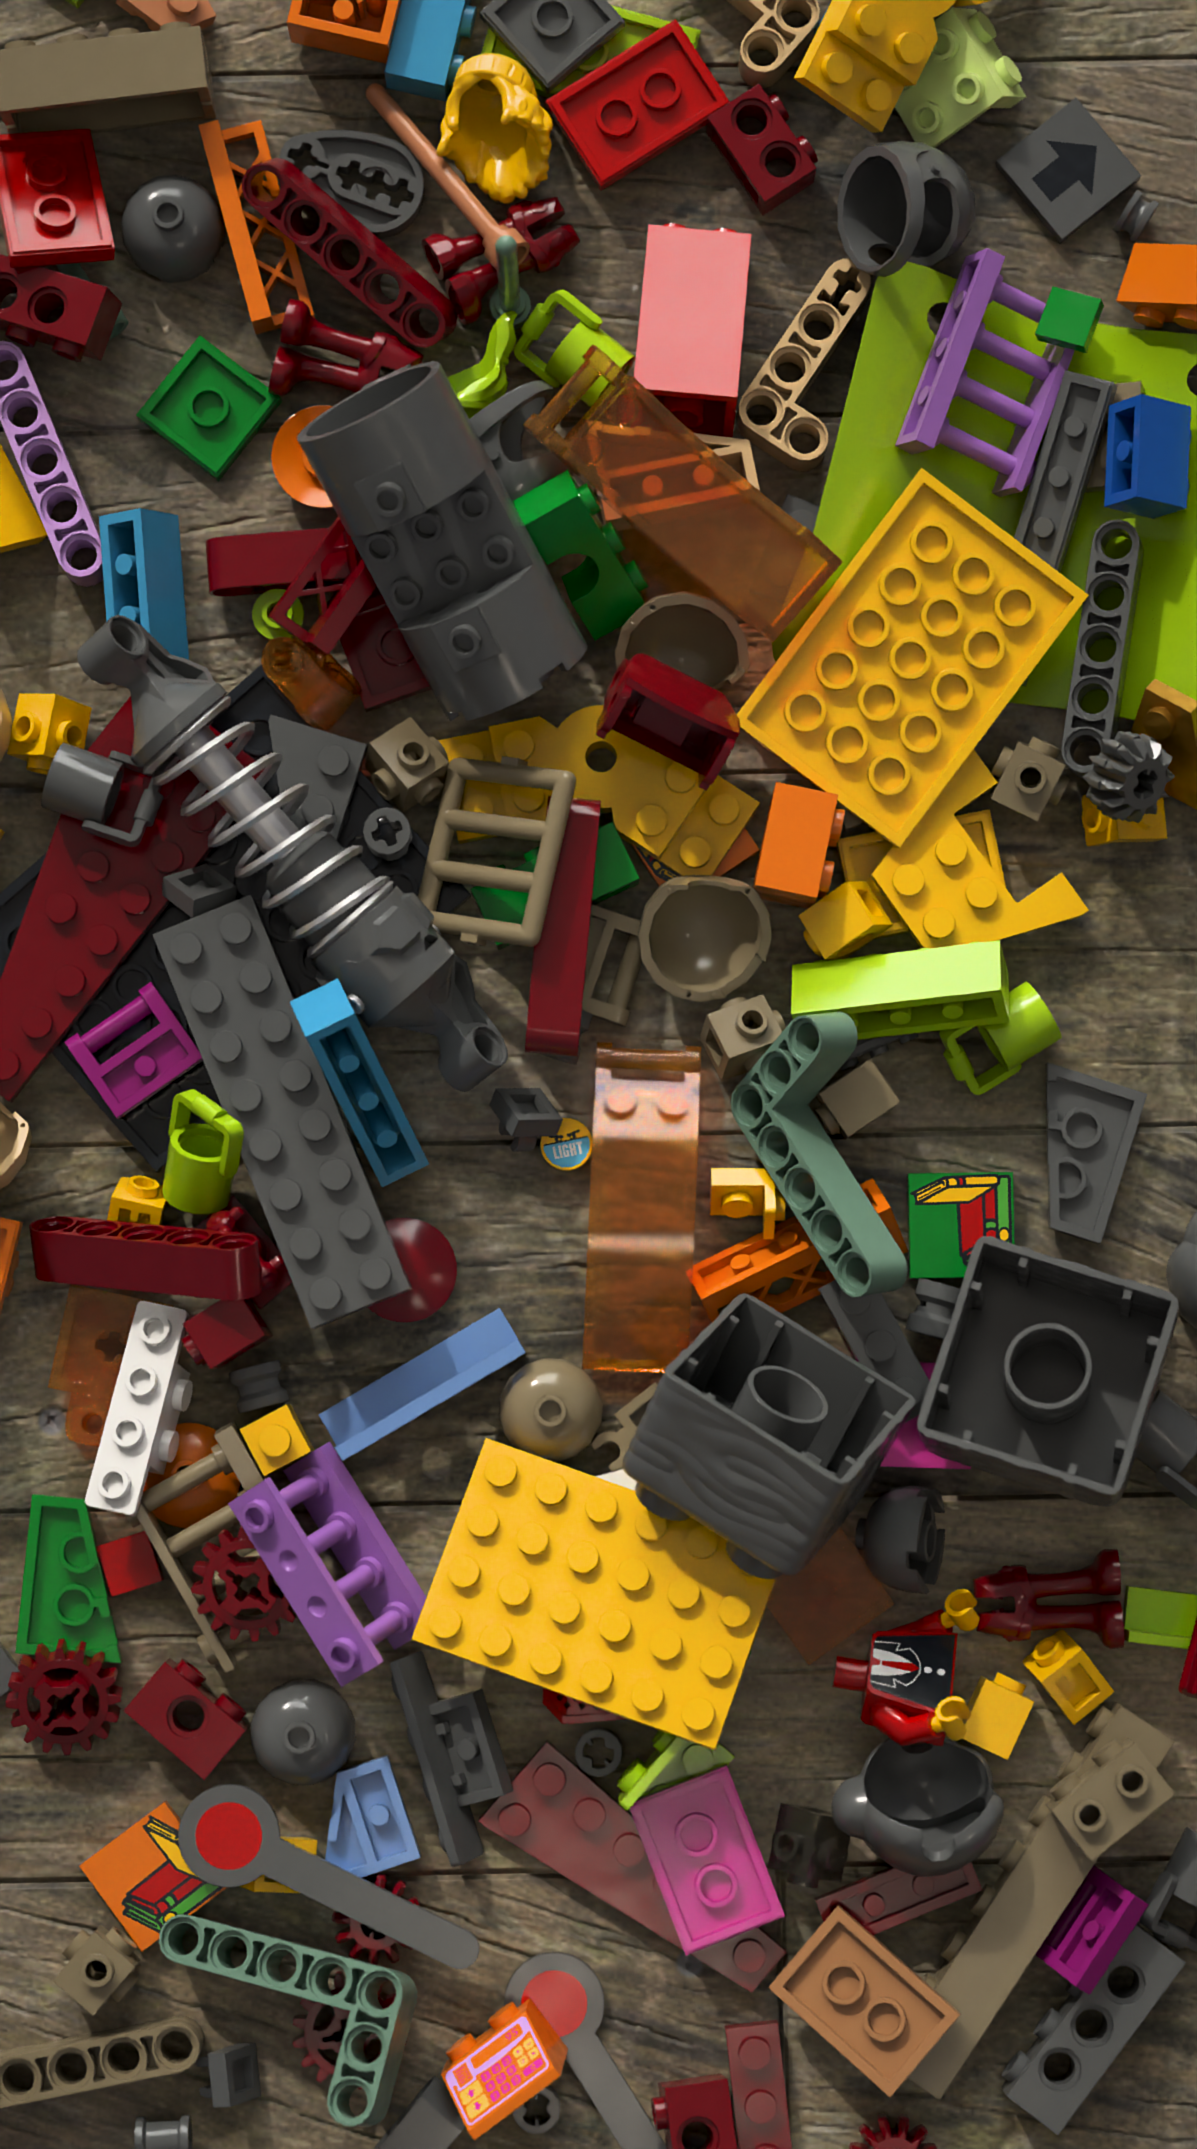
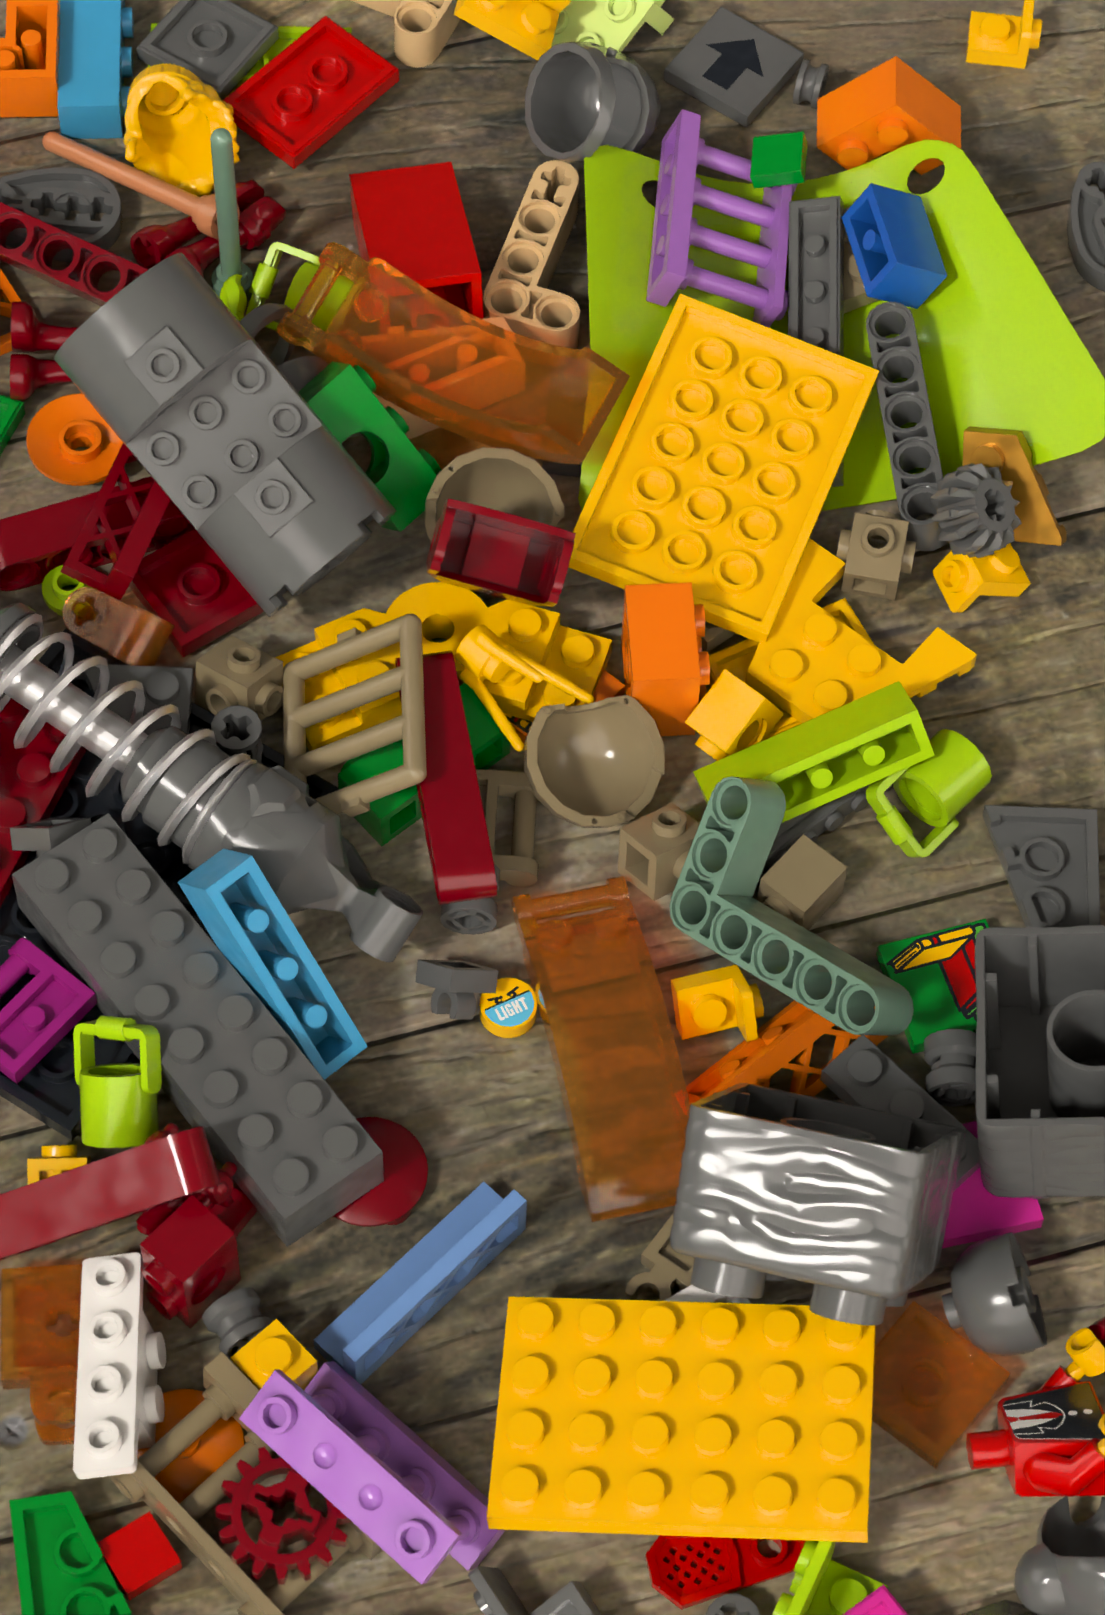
camera: 15 degrees left, 25 degrees down
(551, 1409) = (570, 1259): dark tan cylinder -> none
(633, 813) = (491, 658): none -> yellow plant
(750, 154) = (438, 103): dark red brick -> none

